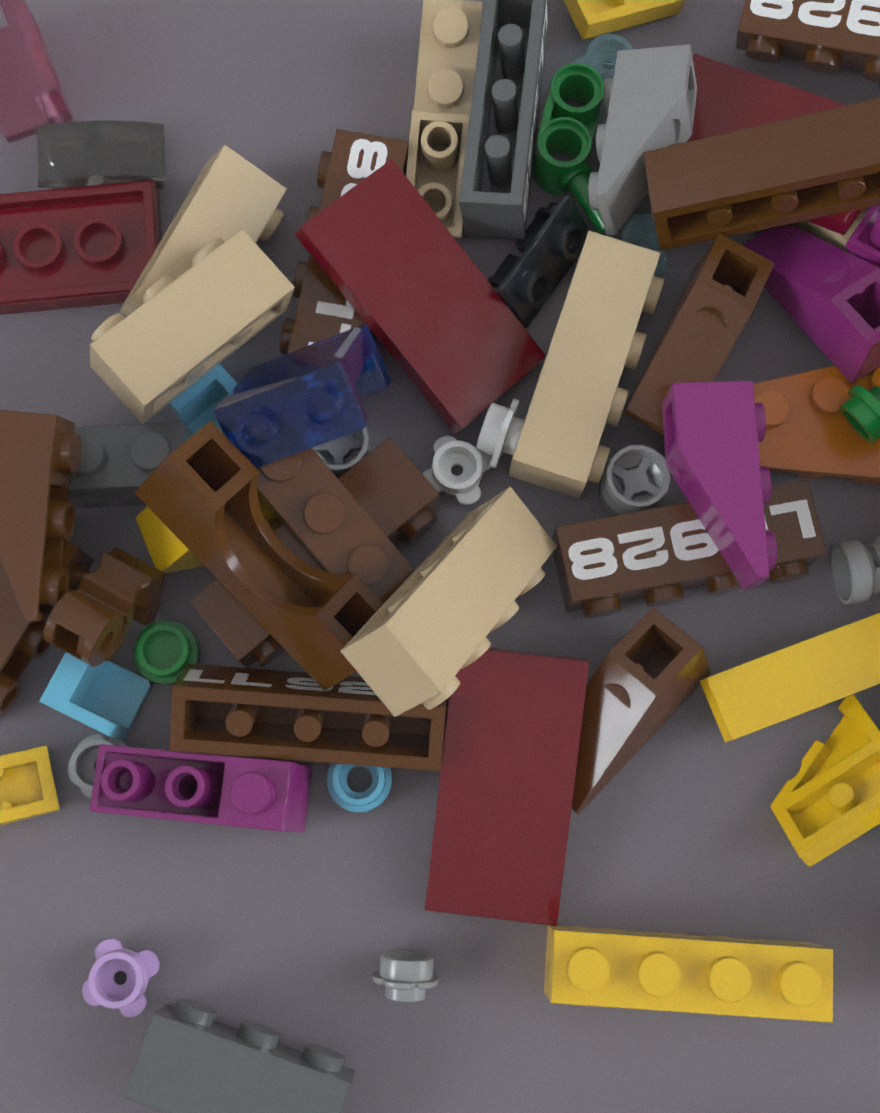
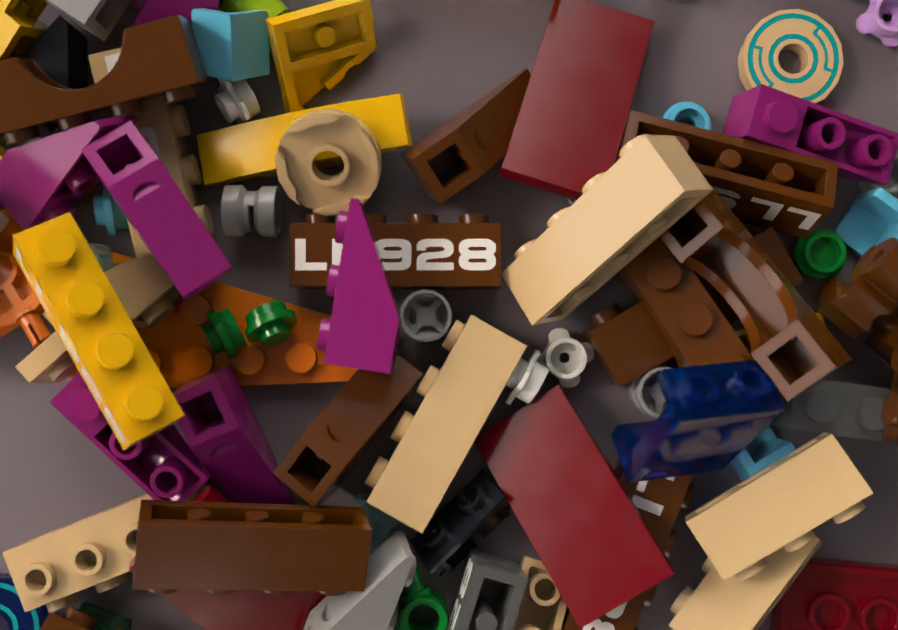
camera: 170 degrees left, 10 degrees up
(199, 904) = (806, 36): none -> tan tile
(793, 665) = (333, 132): none -> tan tile
(818, 434) = (270, 323): none -> green plate

